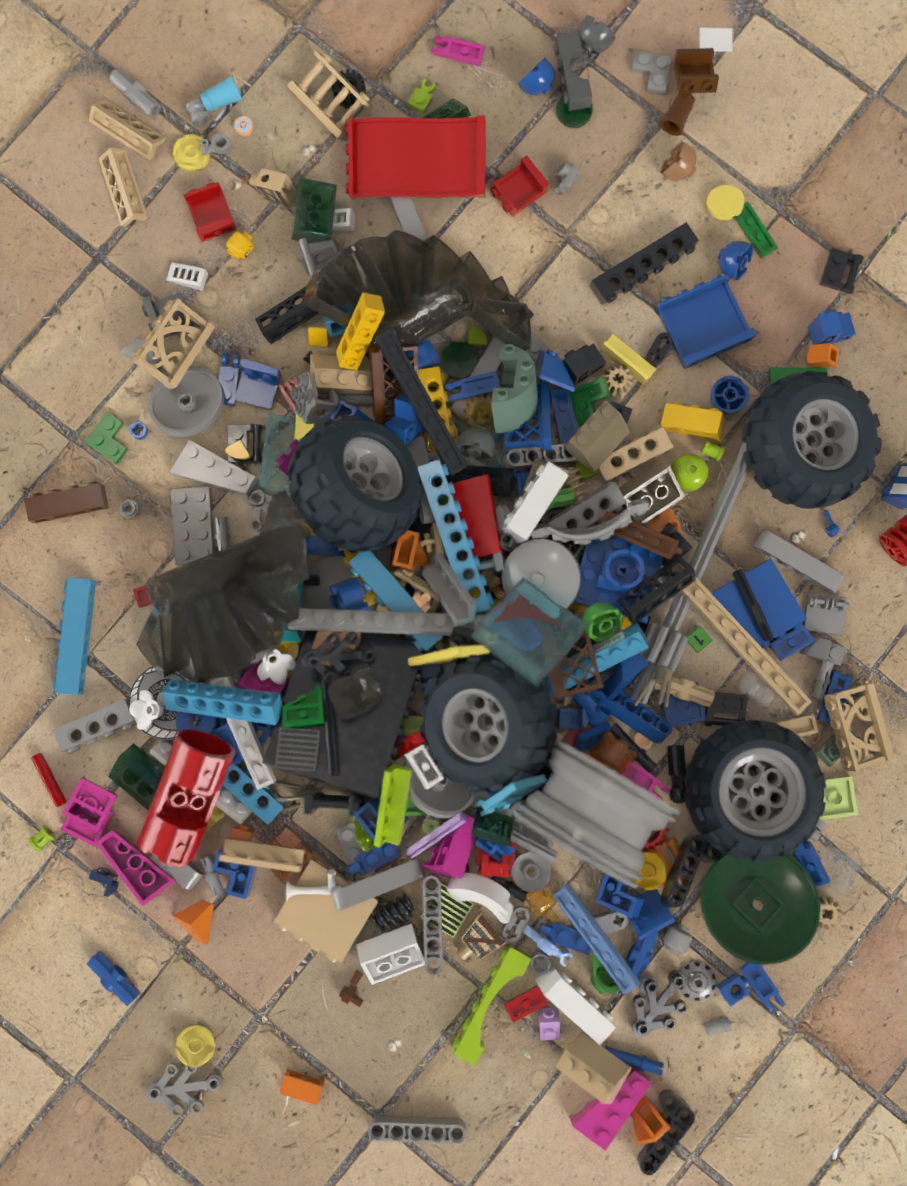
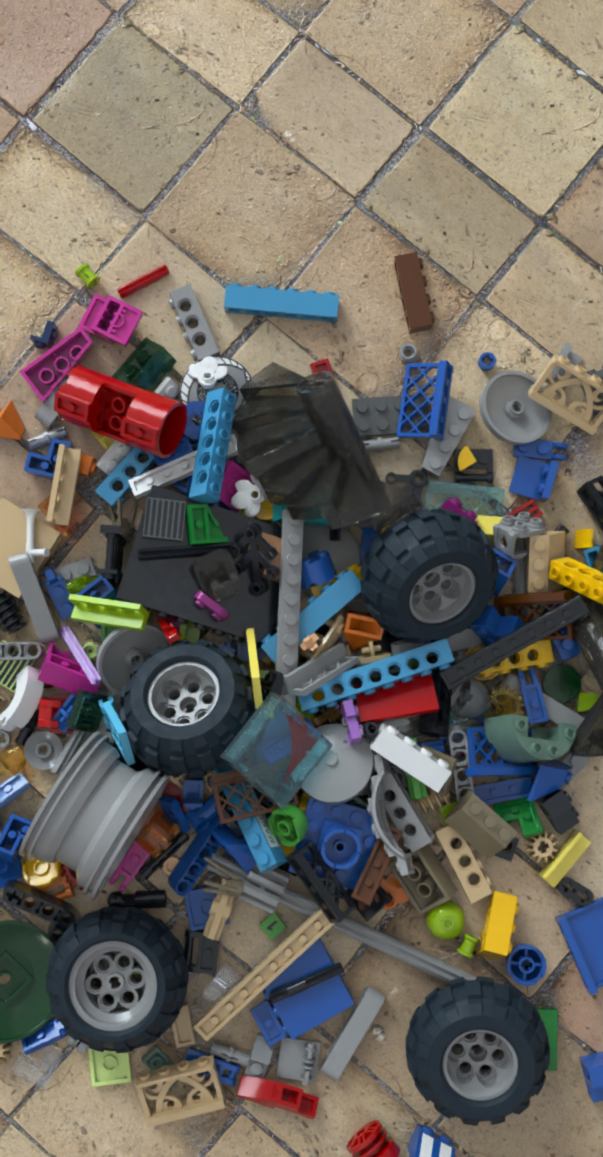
camera: 90 degrees right, 0 degrees up
(102, 438) = (478, 326): green plate -> none
(175, 475) = (440, 400): none -> blue fence
(381, 707) = (203, 601): none -> magenta plate
(423, 766) = (145, 643): white brick -> none
(492, 561) = (350, 714): none -> medium lavender piece
(823, 355) = (569, 1066): orange brick -> none
(834, 528) = (386, 1072): blue hand -> none
(859, 632) = (278, 1095): none -> red slope

